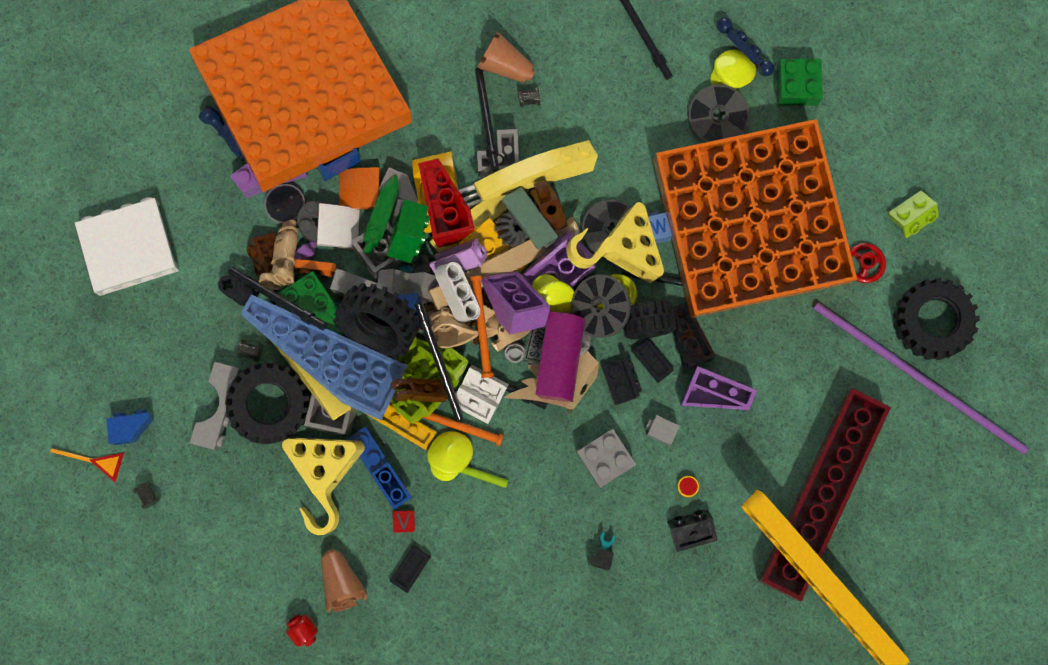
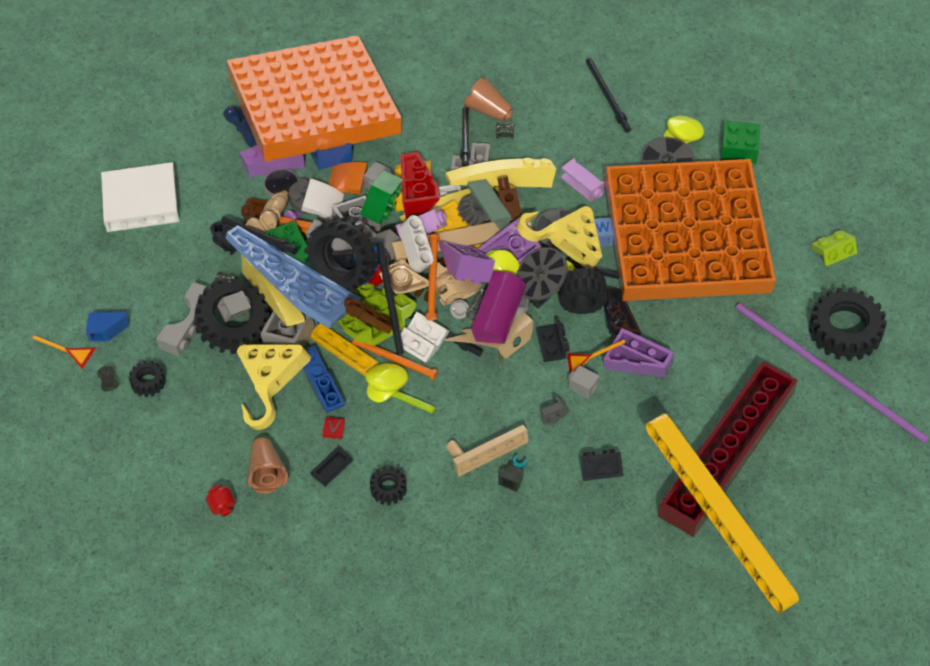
camera: 10 degrees right, 25 degrees down
(178, 482) = (143, 370): none -> black tyre
(270, 403) = (234, 306): none -> light grey brick
(381, 214) = (360, 191): green piece -> none
(483, 596) = (385, 475): none -> black tyre
(550, 547) = (486, 452): none -> tan piece
(605, 458) = (527, 396): light grey brick -> none
(627, 159) = (582, 180): none -> lavender window
(635, 475) = (554, 412): none -> dark grey plate
(651, 402) = (575, 360): none -> light orange piece
(652, 360) = (583, 331): black tile -> none
(688, 486) = (601, 431): red tile -> none
(753, 52) = (712, 129): dark blue plate -> none
(873, 260) = (788, 275): red piece -> none

